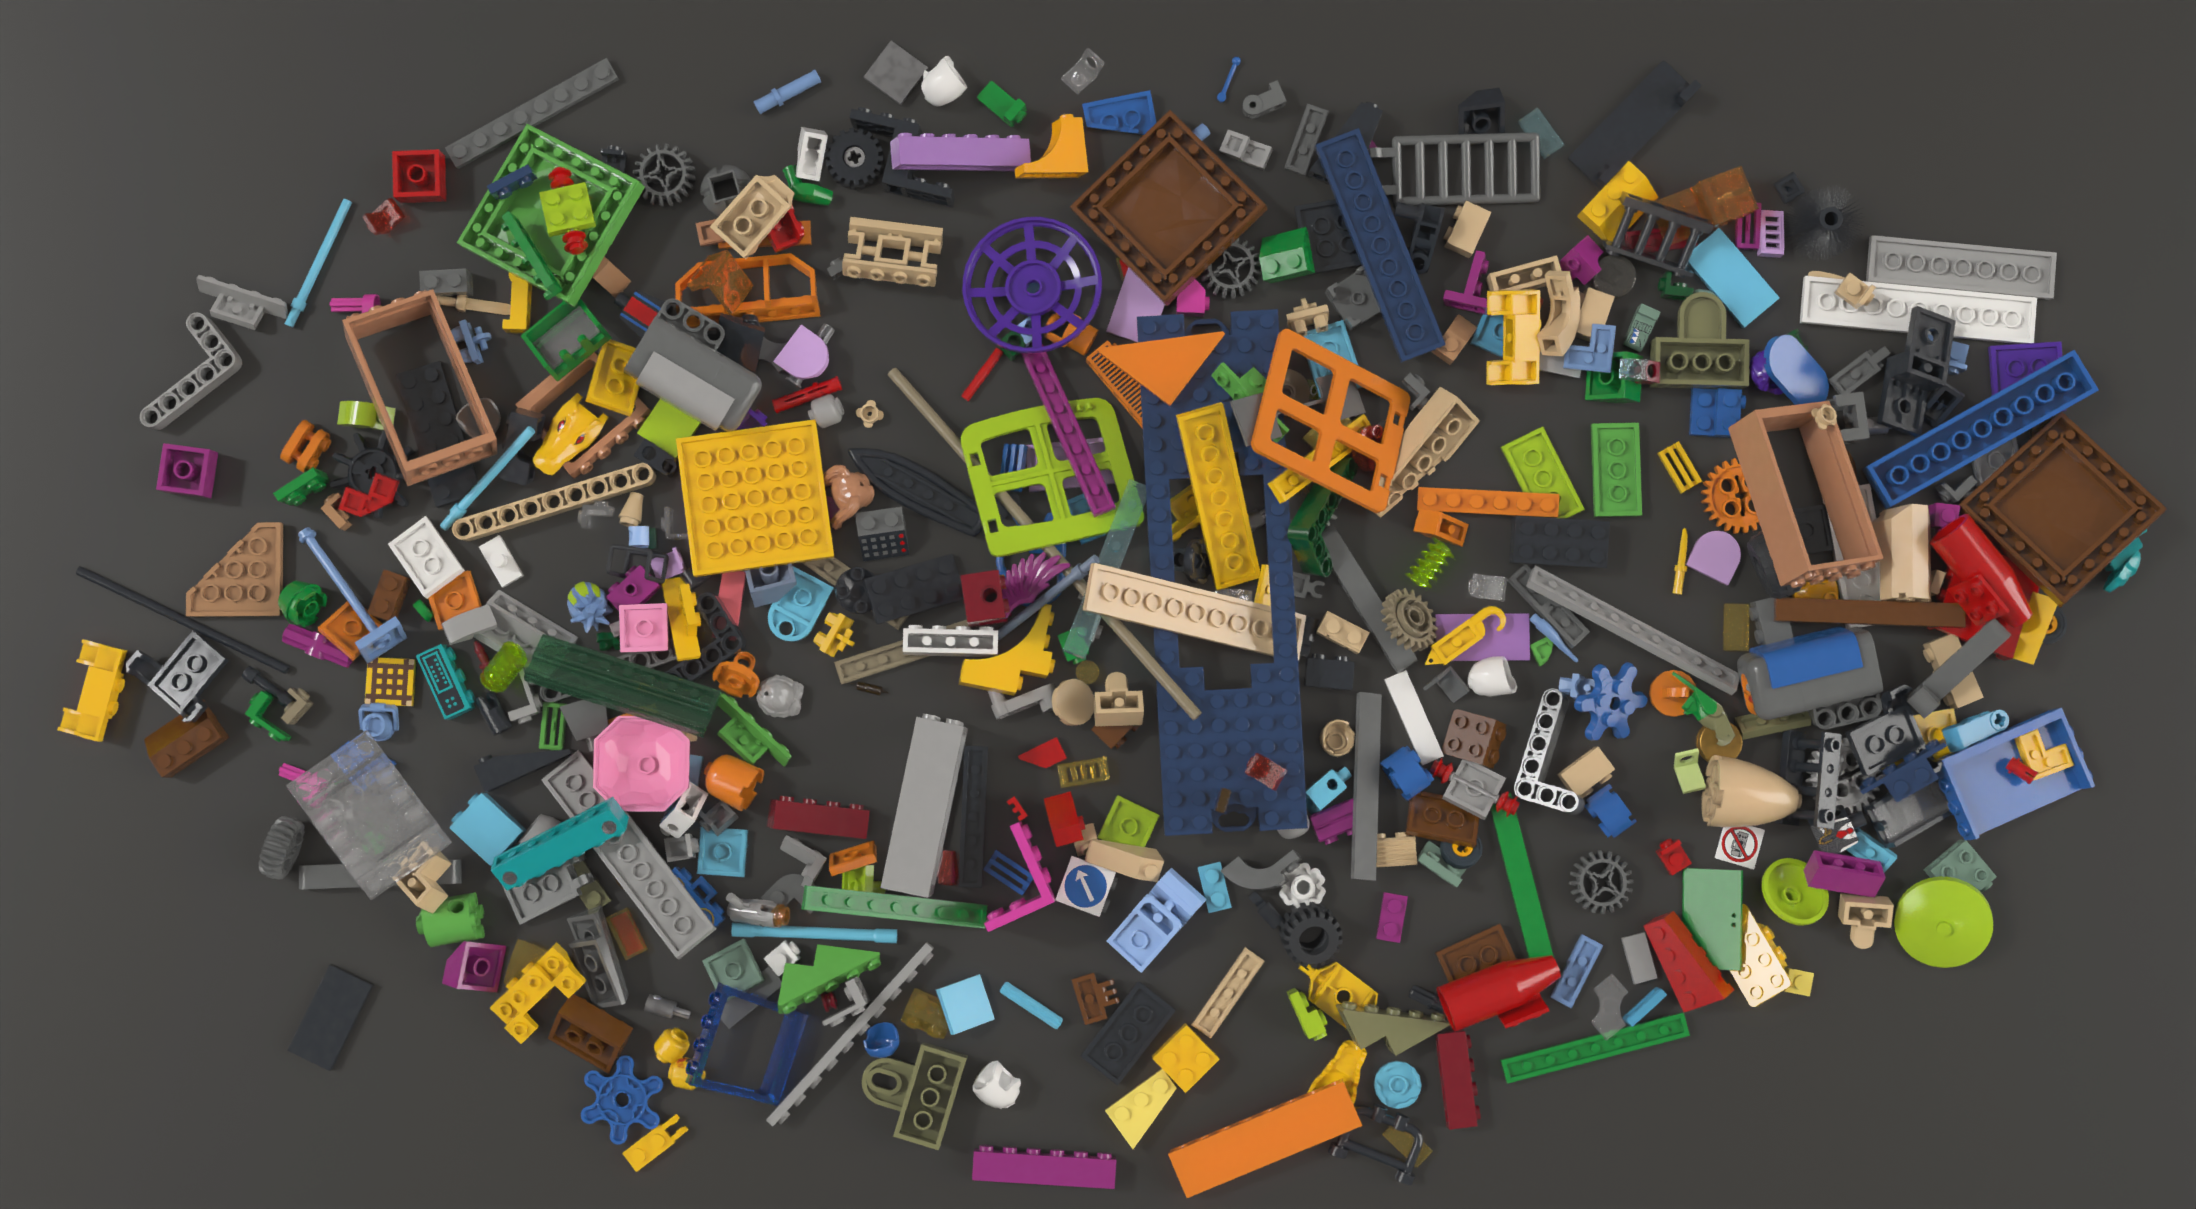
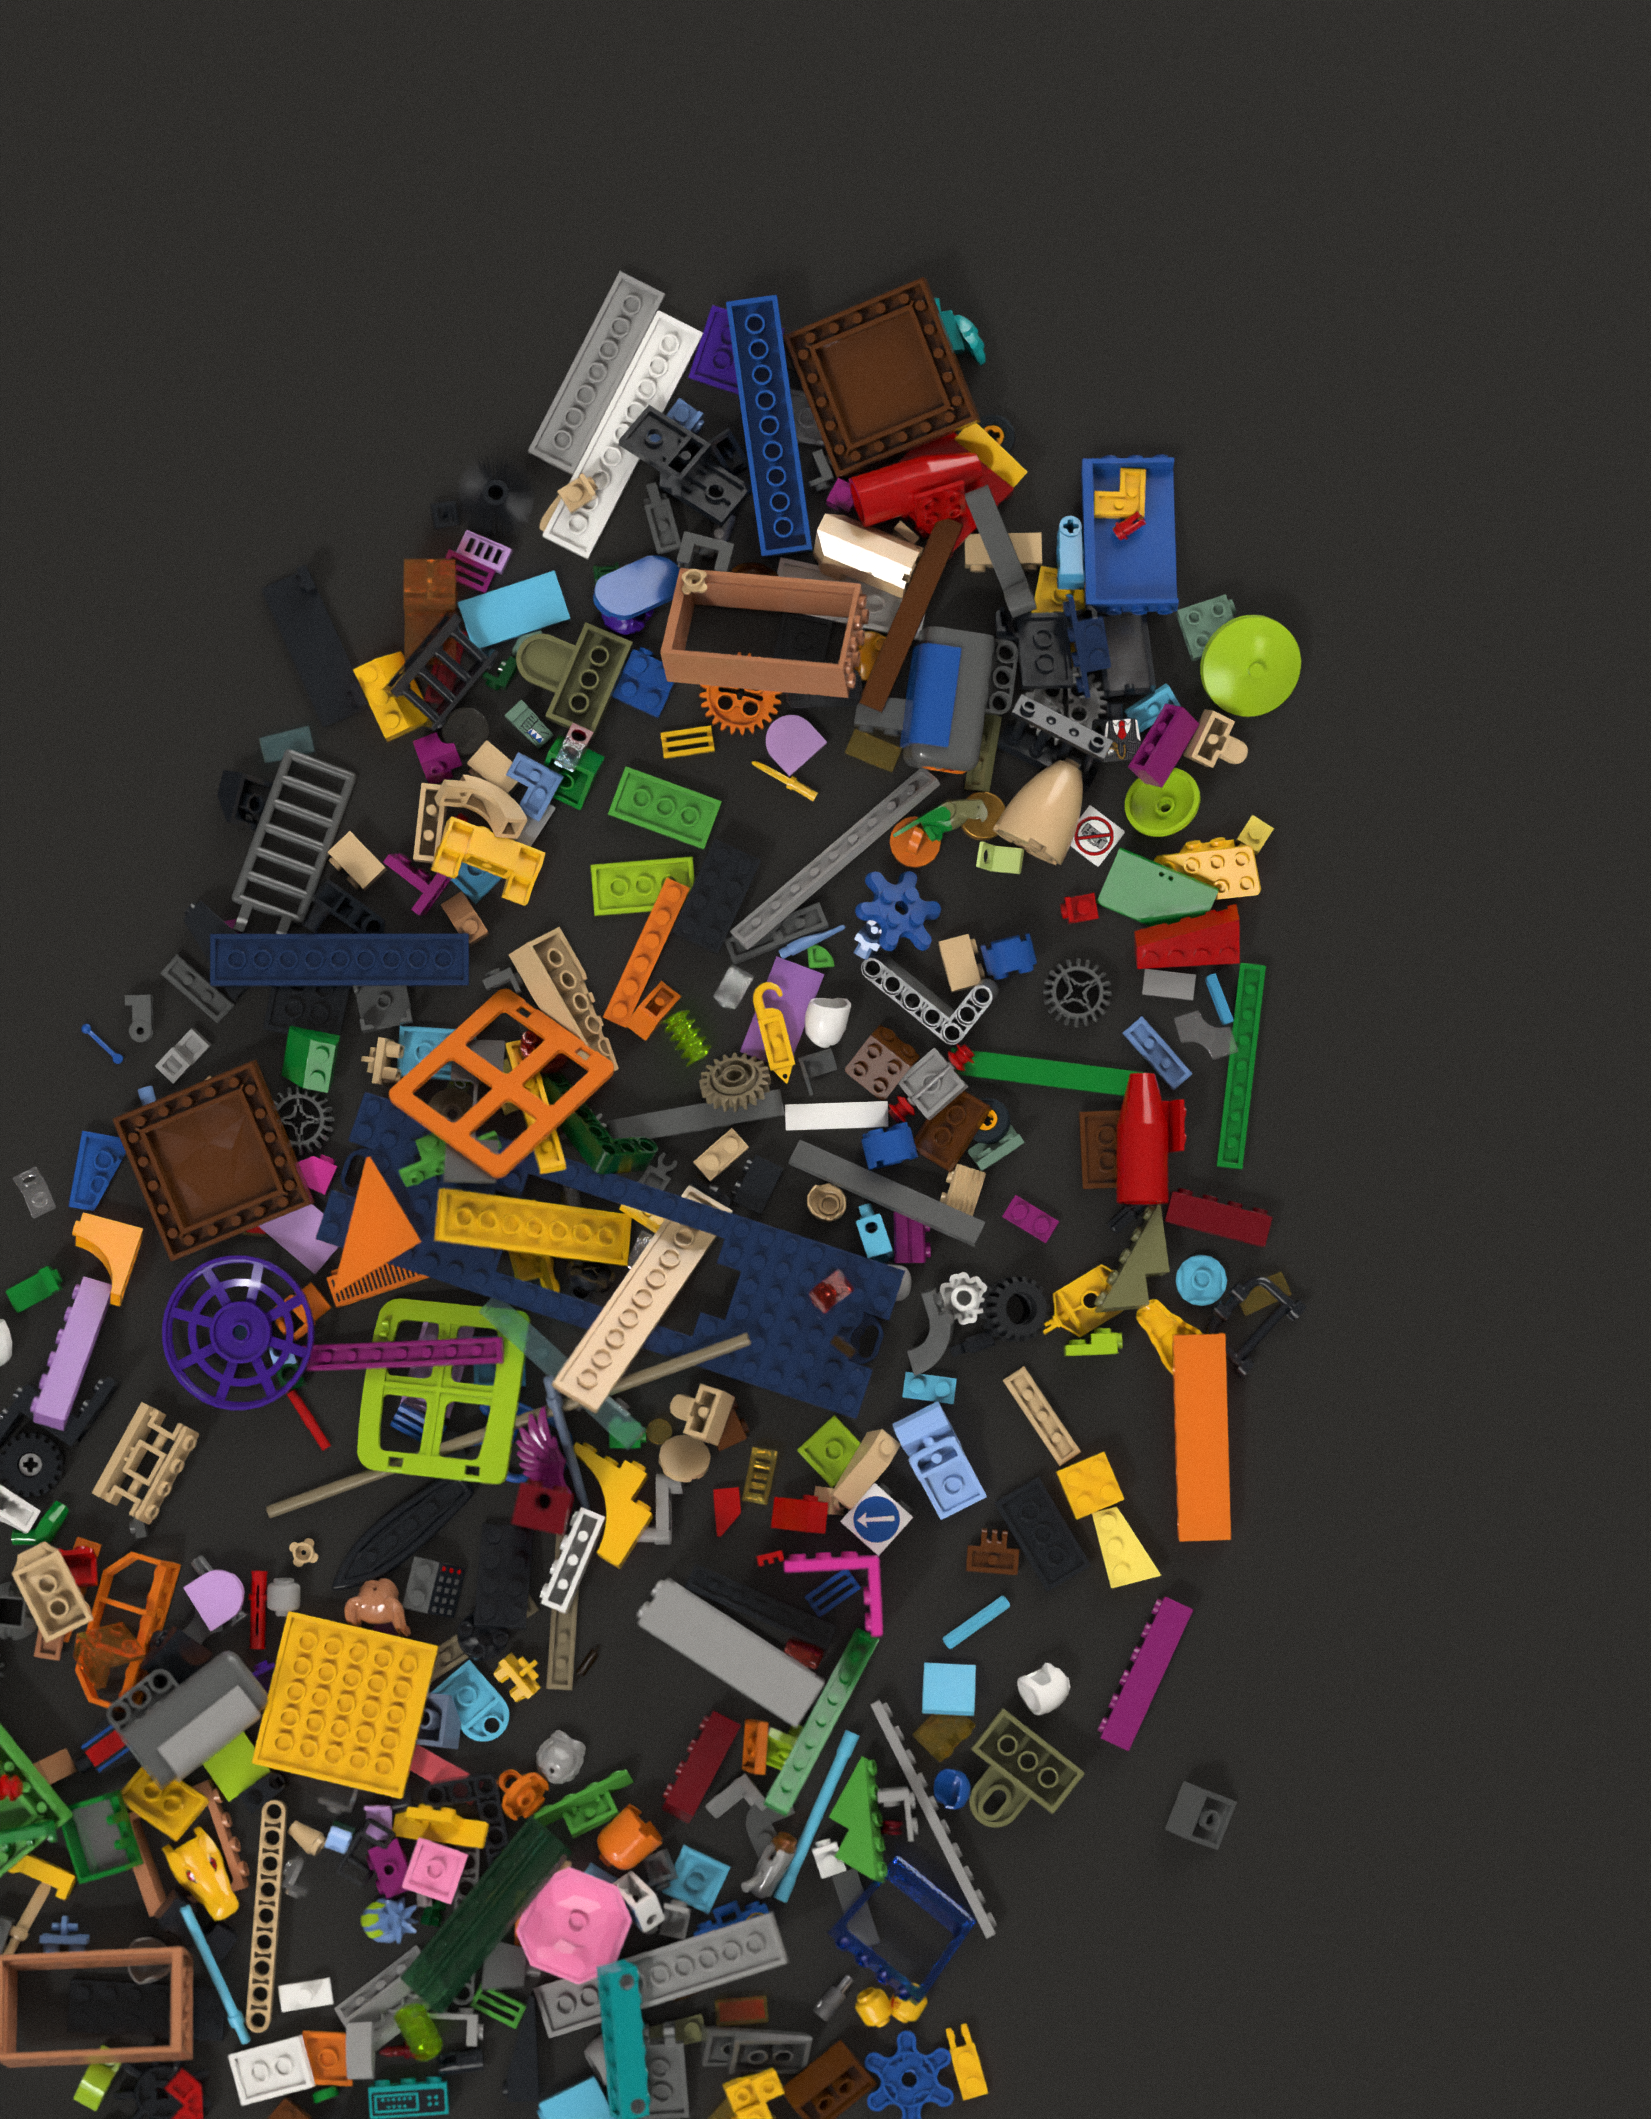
camera: 70 degrees left, 0 degrees up
(734, 967) = (819, 1911): sand green tile -> none

